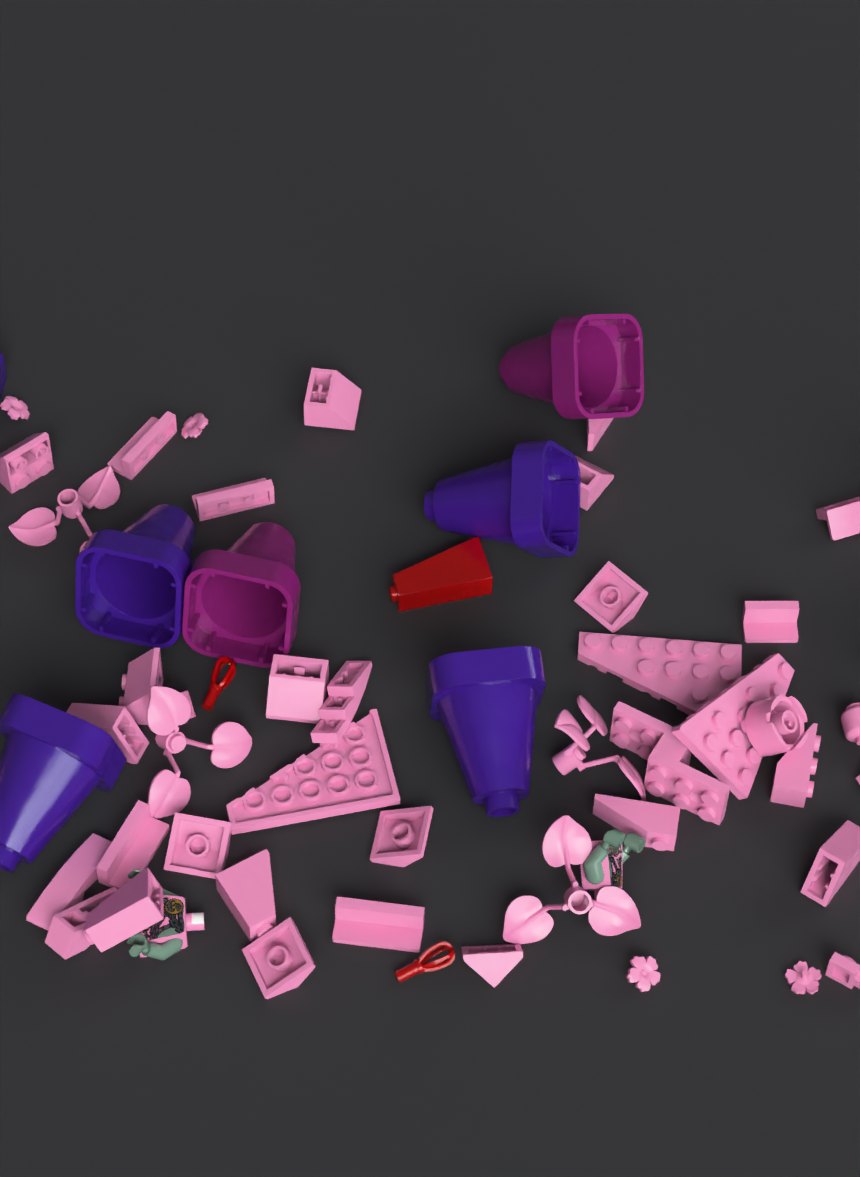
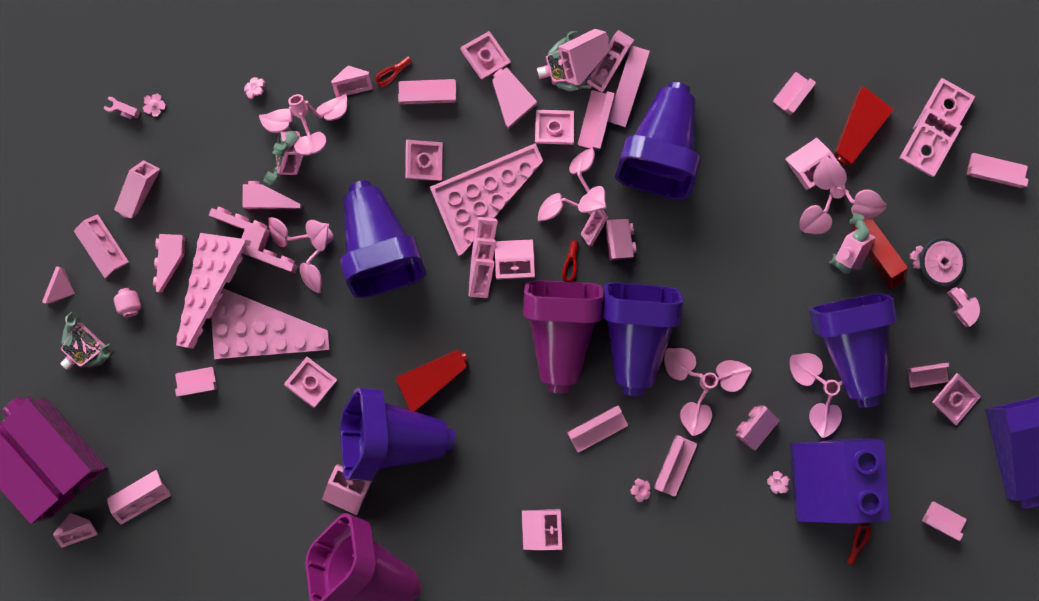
camera: 170 degrees right, 35 degrees up
(118, 724) = (637, 203): bright pink slope -> none
(775, 725) = (183, 277): bright pink brick -> none

